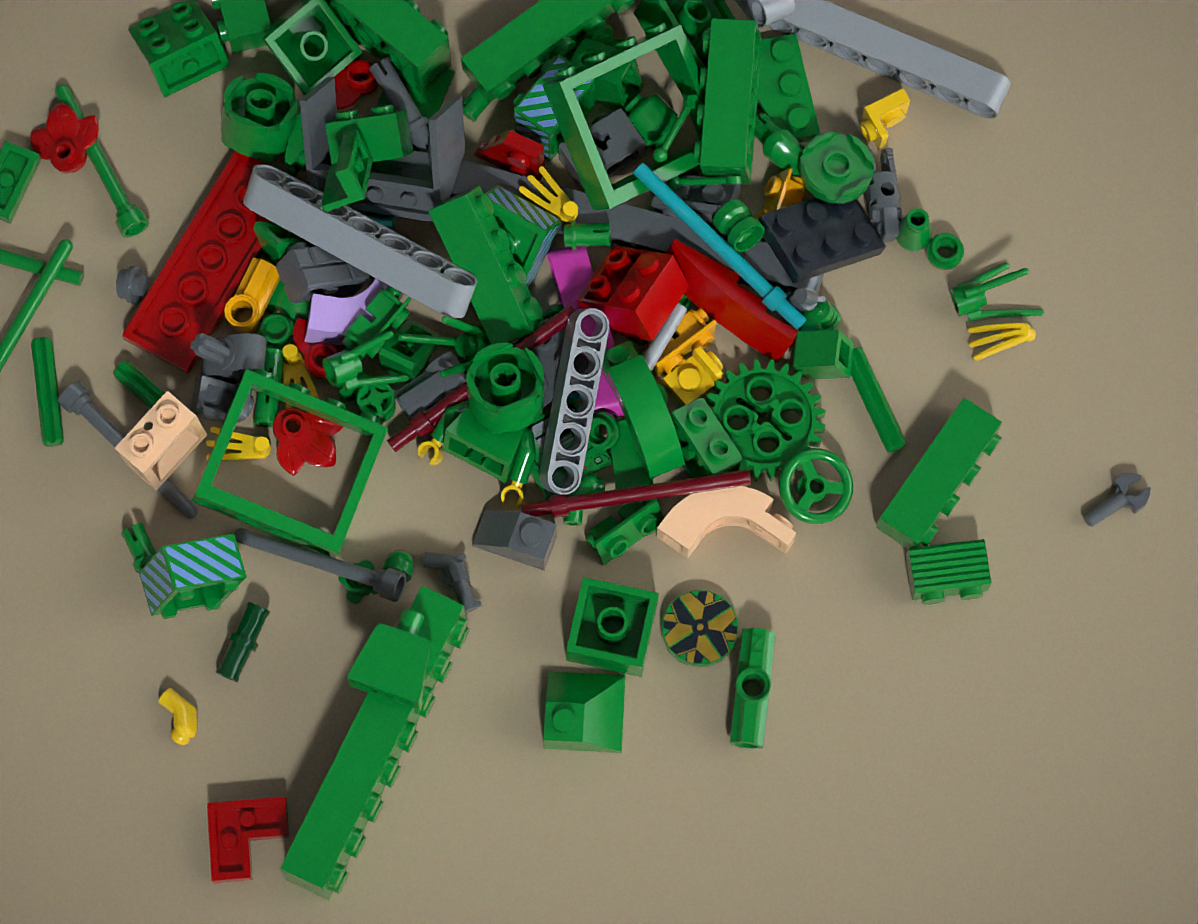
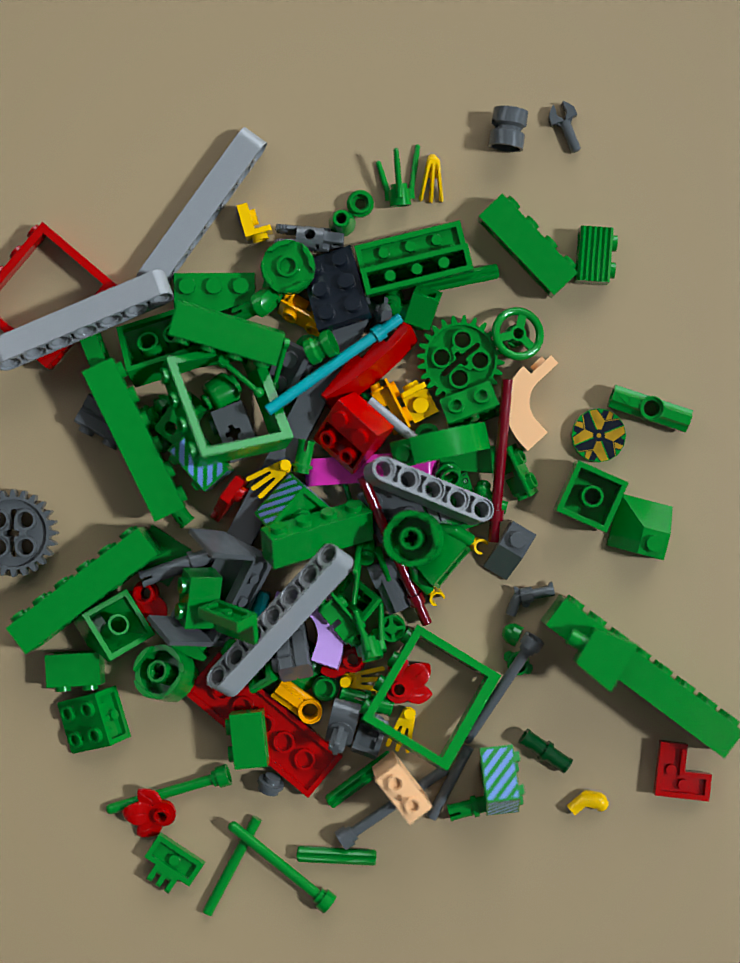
camera: 80 degrees left, 15 degrees up
(169, 521) = (449, 782): none -> dark grey bar
(190, 237) = (248, 738): none -> green brick
(885, 328) = (413, 259): none -> green brick
(1095, 419) = (508, 127): none -> dark grey wheel

